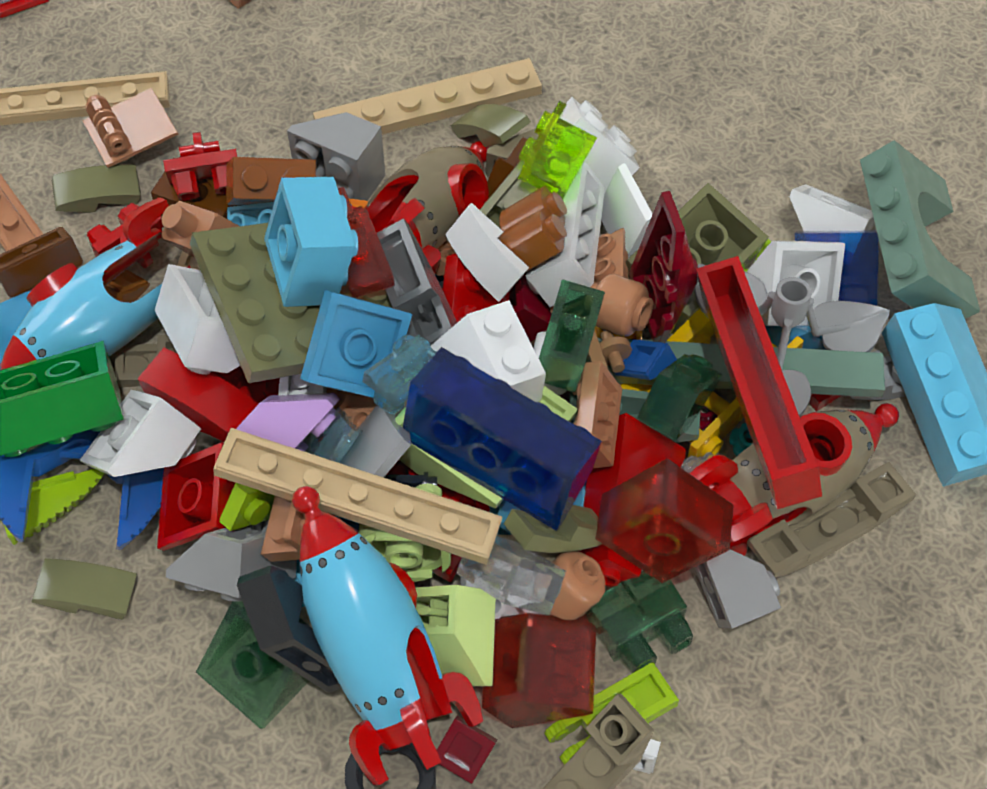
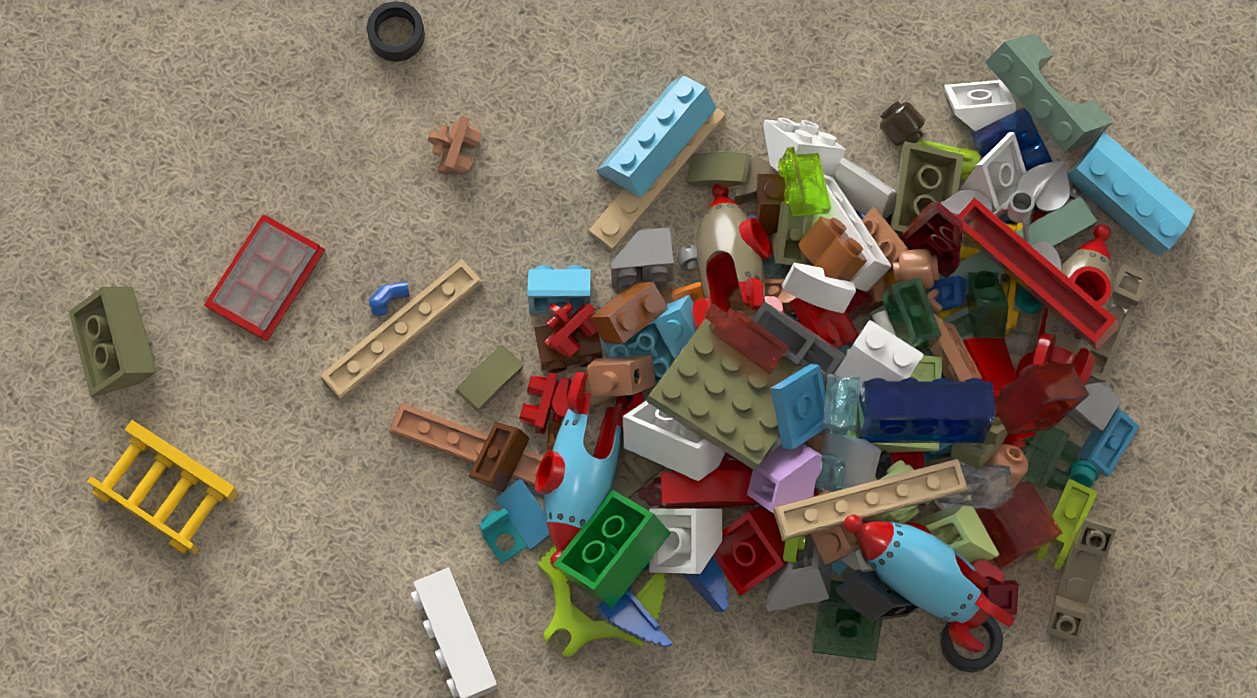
camera: 35 degrees left, 15 degrees up
(69, 62) = (384, 294): none -> blue arm
(84, 586) = (709, 646): olive slope -> none
(127, 126) = (477, 320): hinge -> none
(229, 130) = (558, 287): none -> medium azure slope
(309, 240) = (734, 360): medium azure brick -> none
(450, 57) = (658, 136): none -> medium azure slope
(677, 668) = (1083, 473): none -> teal plate
(732, 181) = (902, 123): none -> dark brown head
(737, 655) = (1107, 446): none -> dark azure slope

